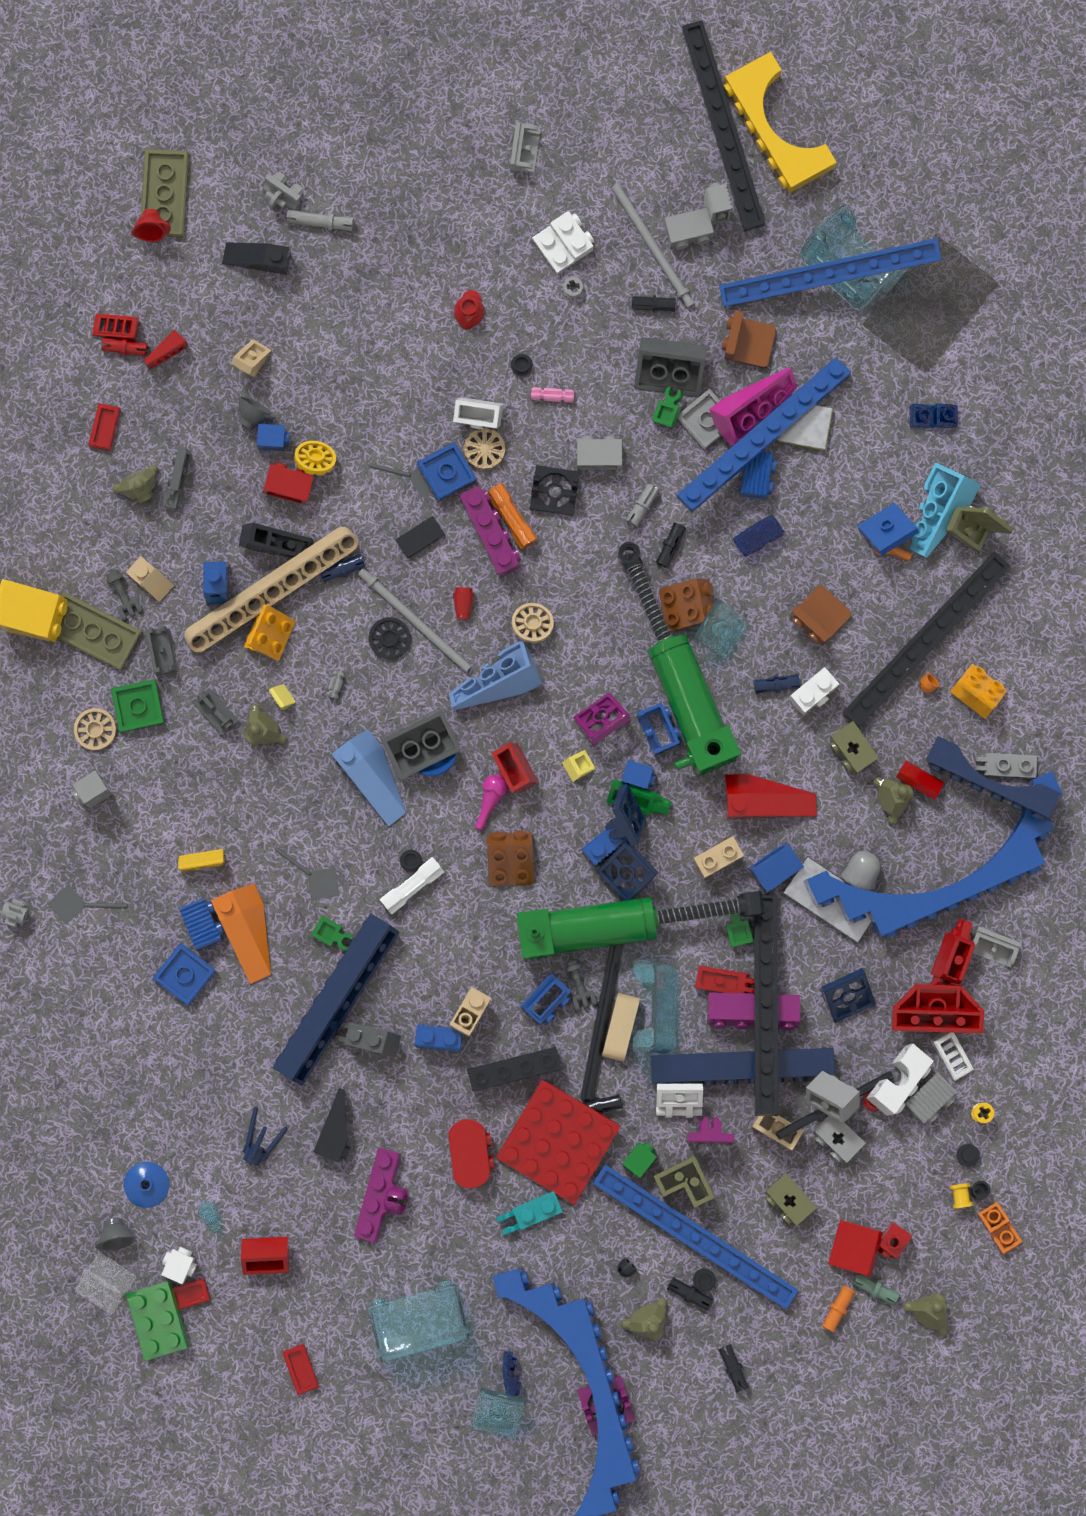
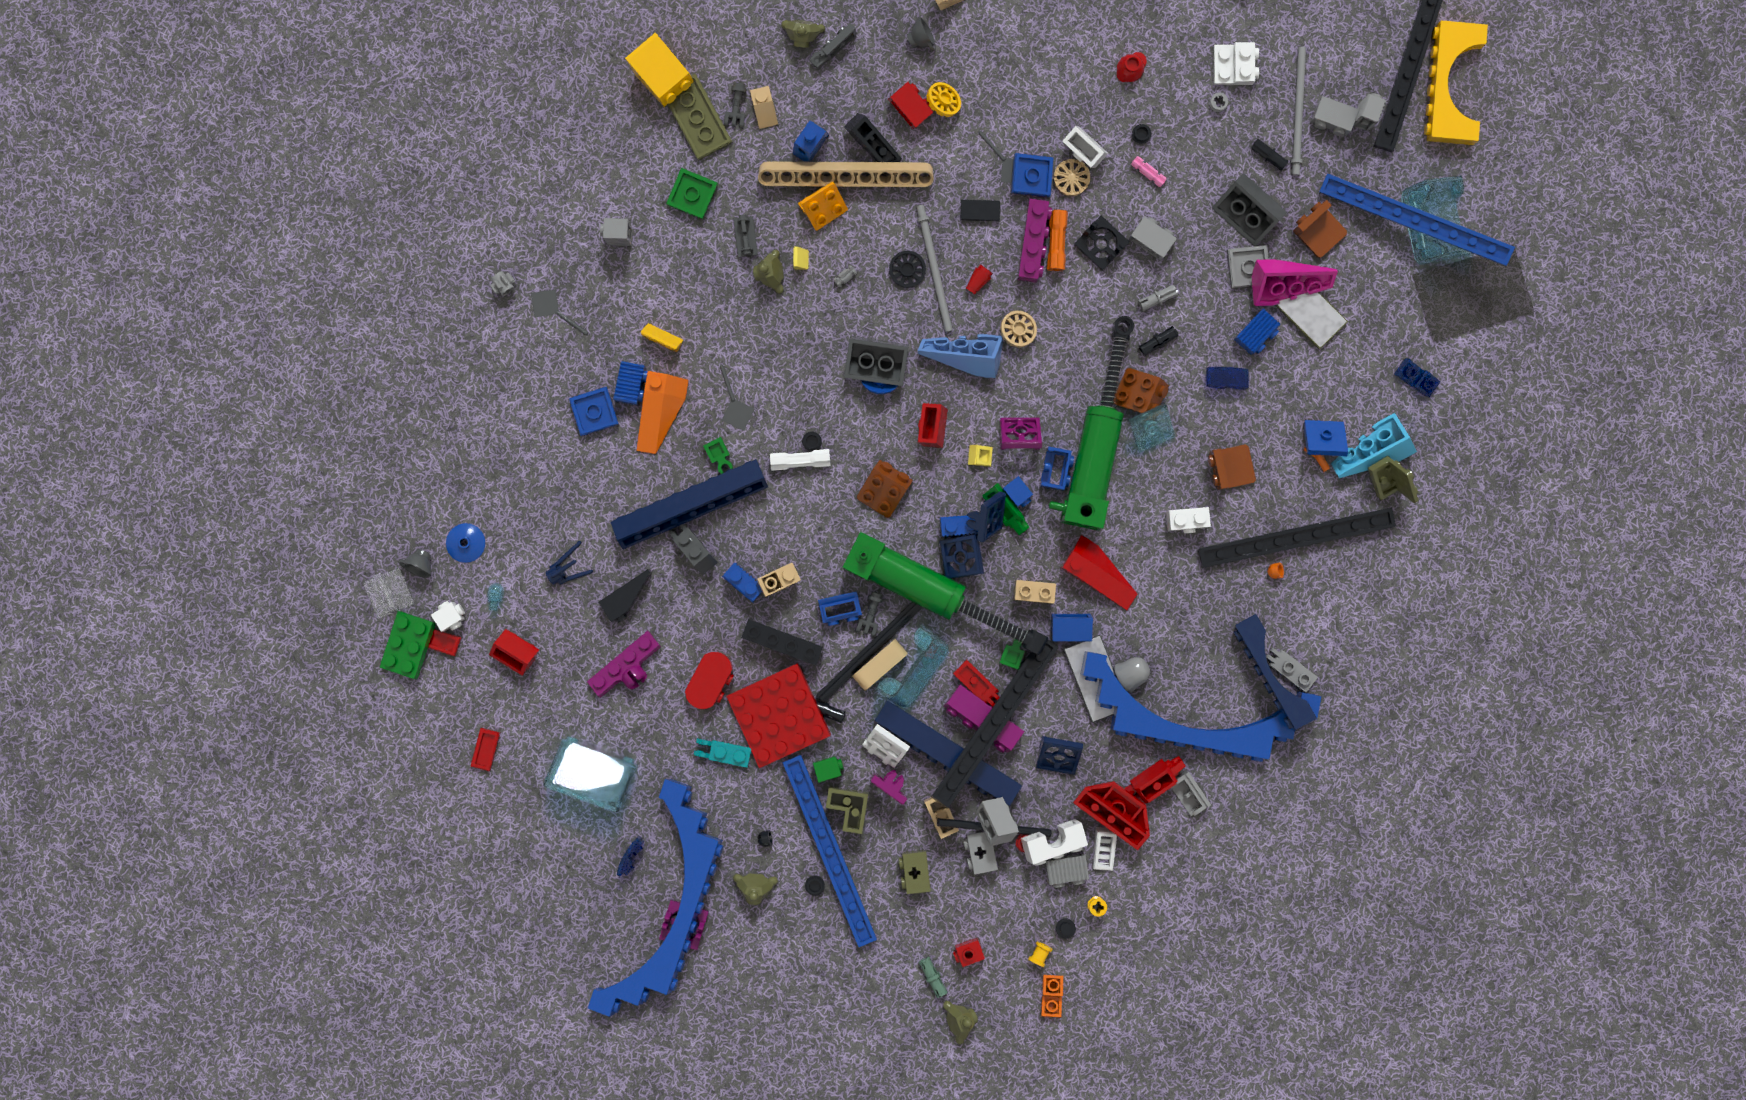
camera: 30 degrees right, 5 degrees up
(95, 729) = (650, 190): tan wheel -> none
(162, 651) = (736, 165): dark grey hinge -> none
(272, 437) = (923, 63): blue brick -> none
(343, 568) = (908, 194): dark blue pin -> none
(369, 770) = (826, 355): medium blue wedge -> none
(494, 790) = (906, 431): dark pink piece -> none
(498, 1412) = (603, 878): clear light blue plate -> none
(668, 411) = (1225, 241): green plate -> none
(690, 1293) = (798, 888): black pin -> none
(733, 1368) = (792, 962): black pin -> none
(763, 435) = (1283, 306): blue plate -> none
(776, 683) = (1165, 495): dark blue pin -> none
(838, 1309) = (896, 972): orange pin -> none
(855, 1248) = (938, 938): red tile -> none
(864, 754) = (1193, 570): olive brick -> none
(893, 797) = (1192, 635): olive rock -> none
(920, 780) = (1220, 636): red tile -> none
(976, 1186) = (1057, 955): black hinge -> none
(979, 690) = (1308, 601): light orange bracket -> none

